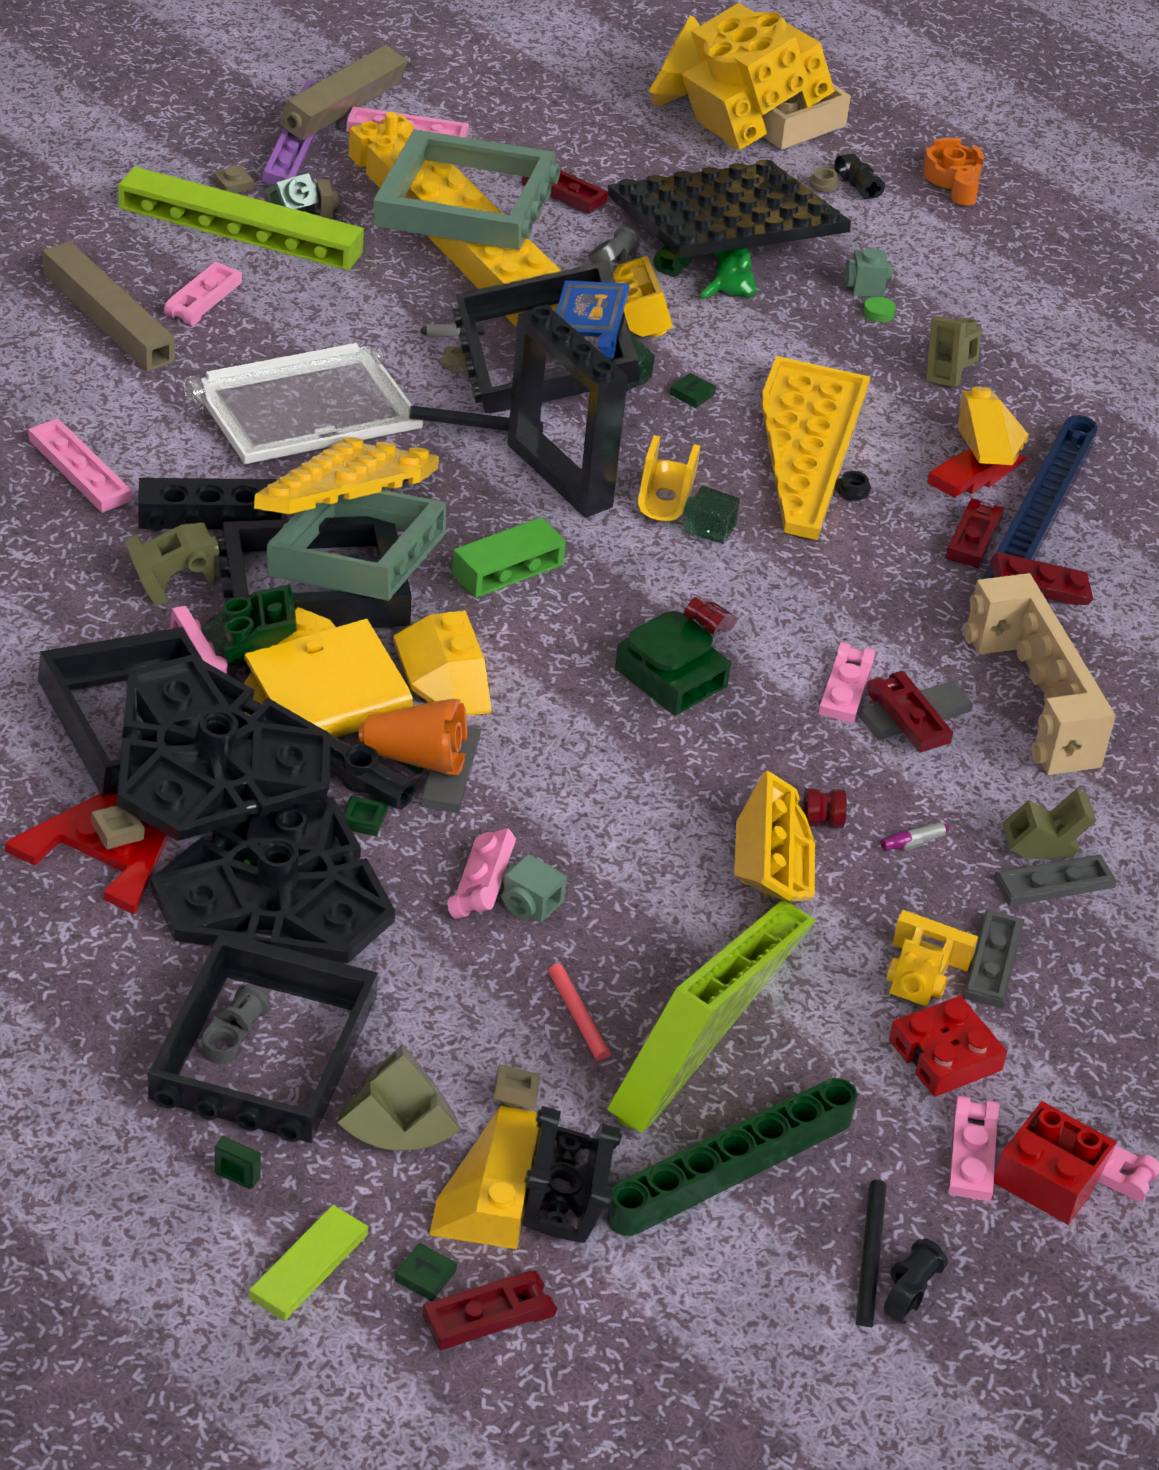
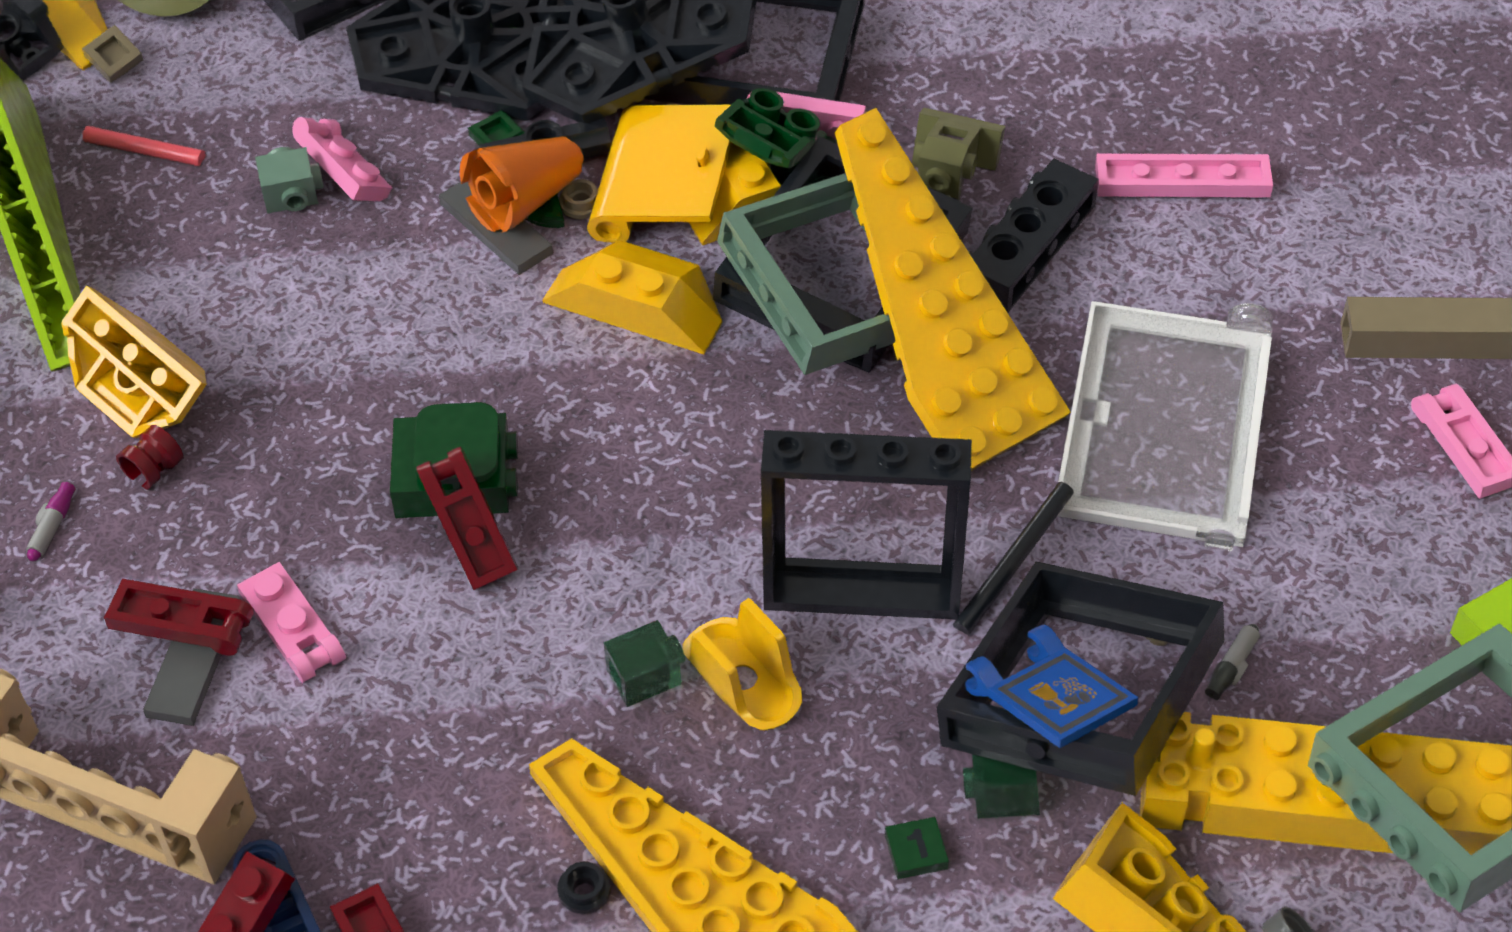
camera: 135 degrees right, 10 degrees up
(508, 557) = (739, 416): bright green brick -> none

